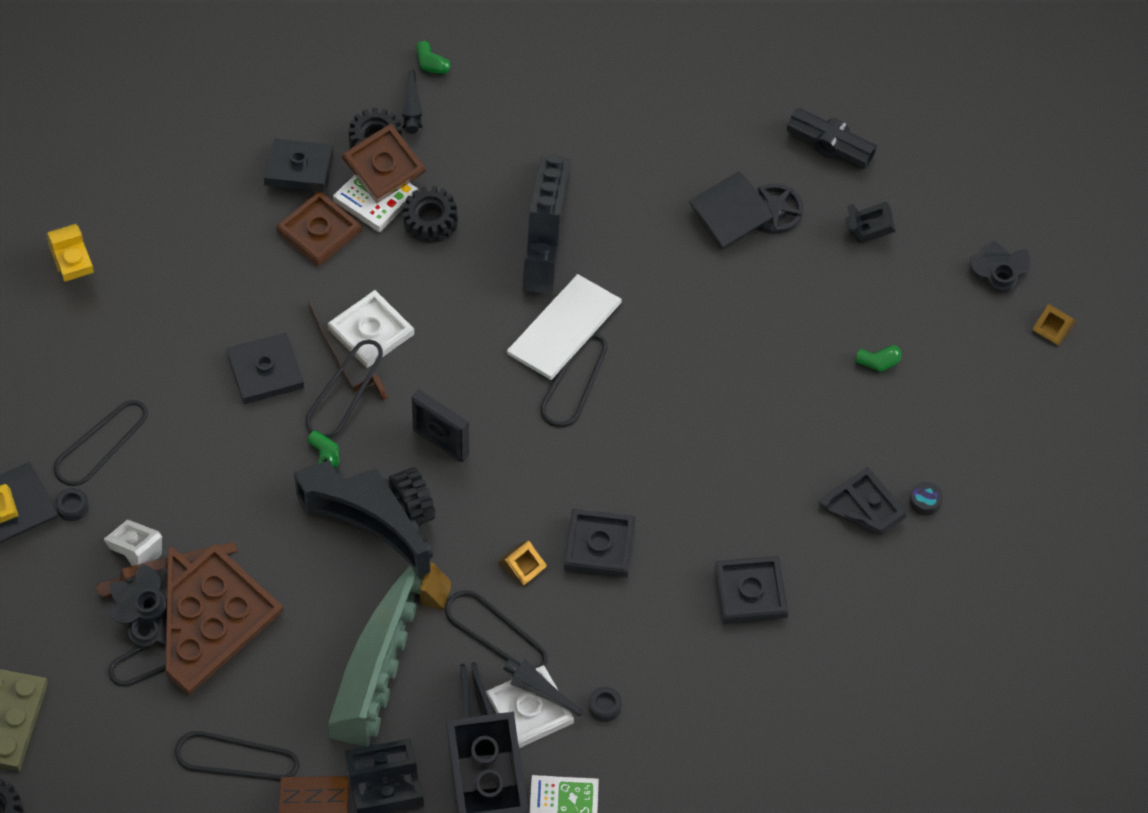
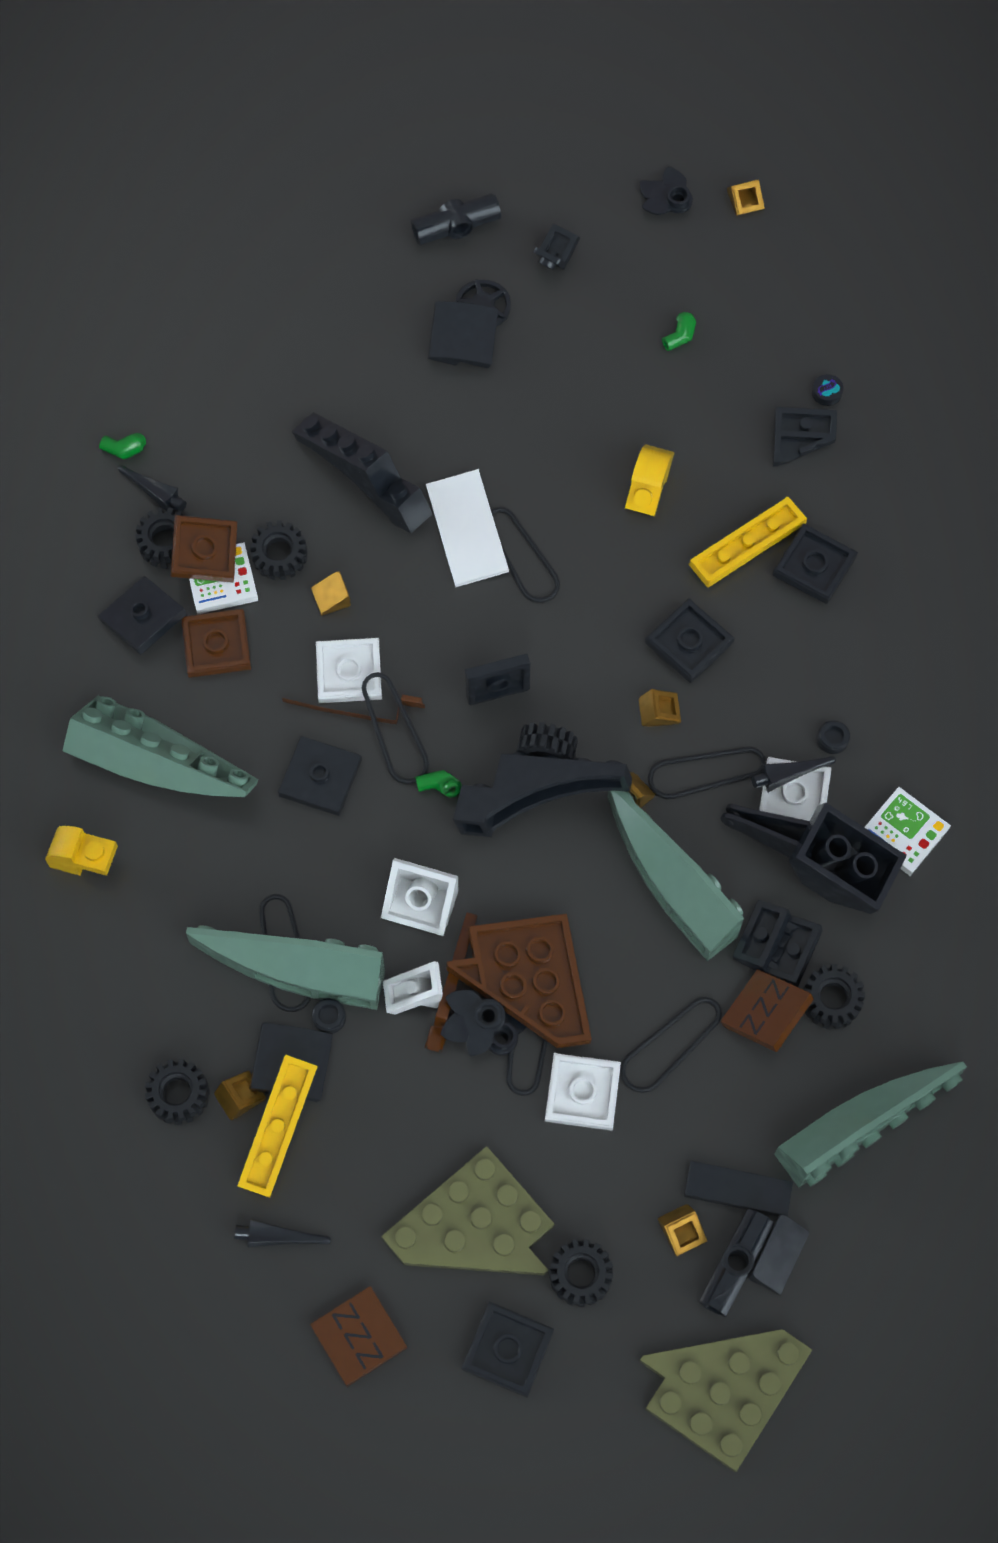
camera: 50 degrees left, 10 degrees up
(95, 461) = (299, 965): none -> sand green wedge
(145, 718) = (582, 1091): none -> white tile
(189, 242) = (150, 752): none -> sand green wedge
(215, 498) = (420, 897): none -> white slope
(425, 274) = (331, 594): none -> slope
(718, 413) = (648, 479): none -> yellow brick
(726, 527) = (747, 542): none -> yellow plate

